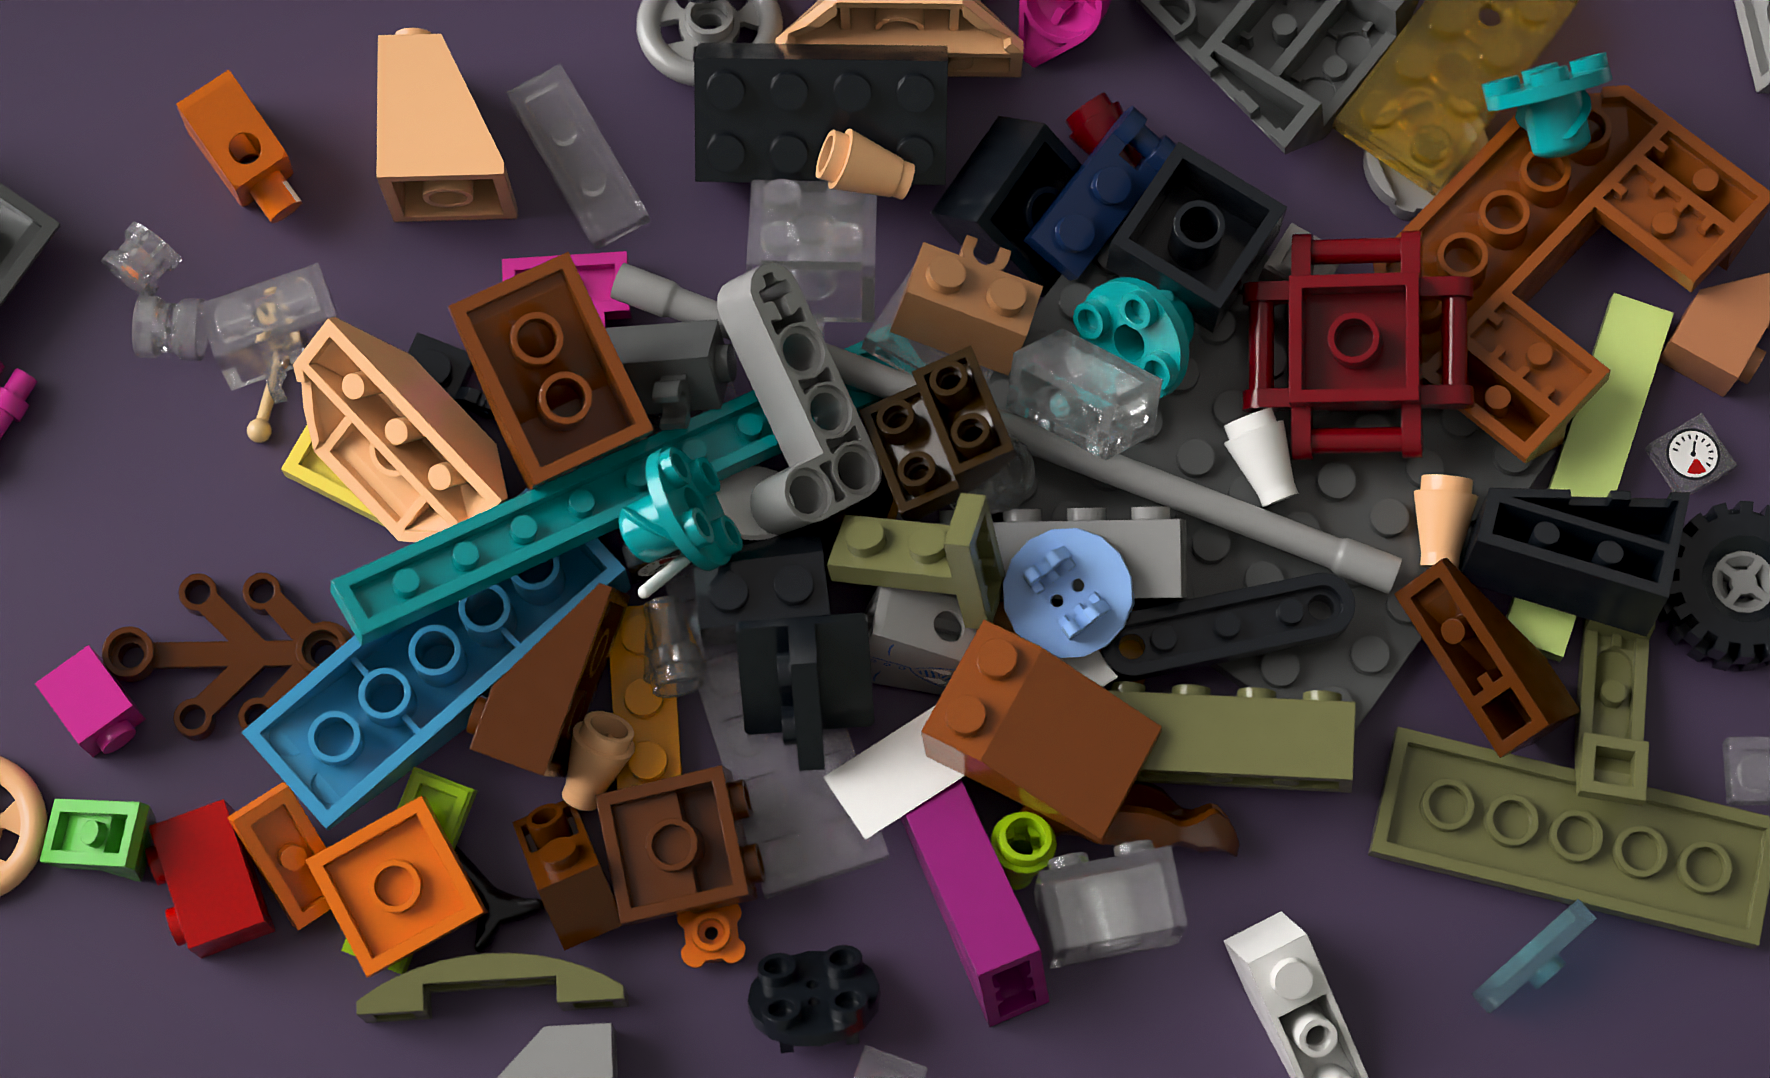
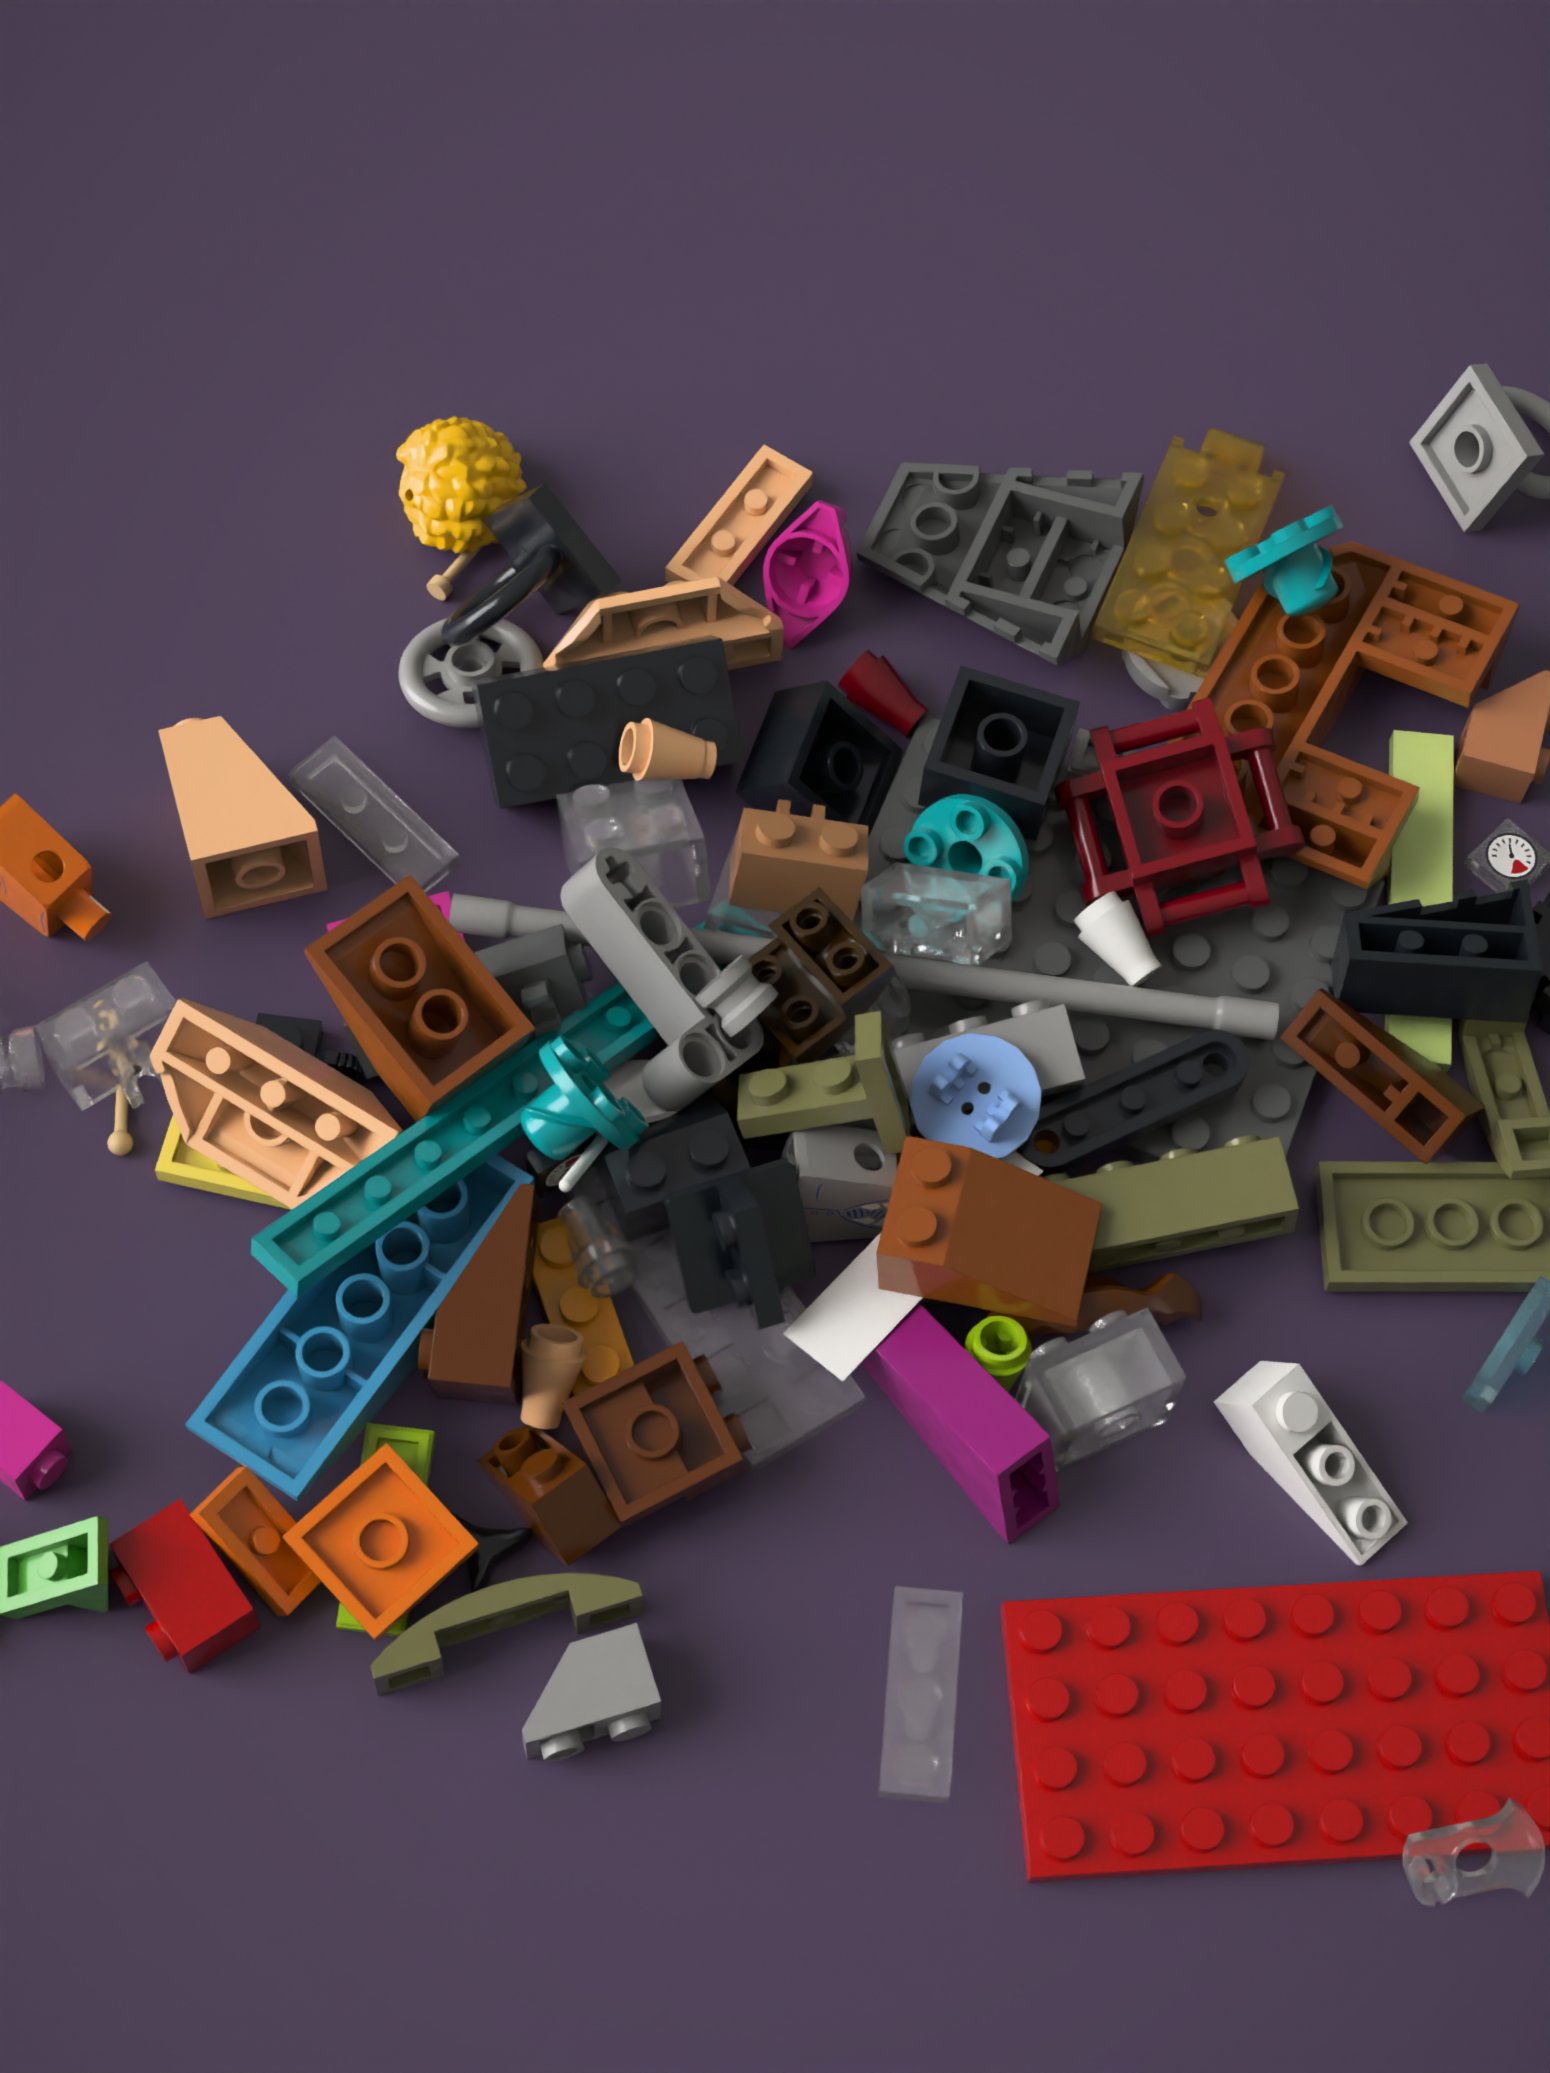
camera: 20 degrees left, 10 degrees down
(242, 655) = (157, 1362): reddish brown plant -> none
(724, 947) = (705, 1537): orange plate -> none
(813, 997) = (831, 1551): black plate -> none
(857, 441) = (736, 995): none -> light grey wheel
(1099, 196) = (893, 740): dark blue plate -> none
(1443, 516) = (1304, 954): light nougat cone -> none

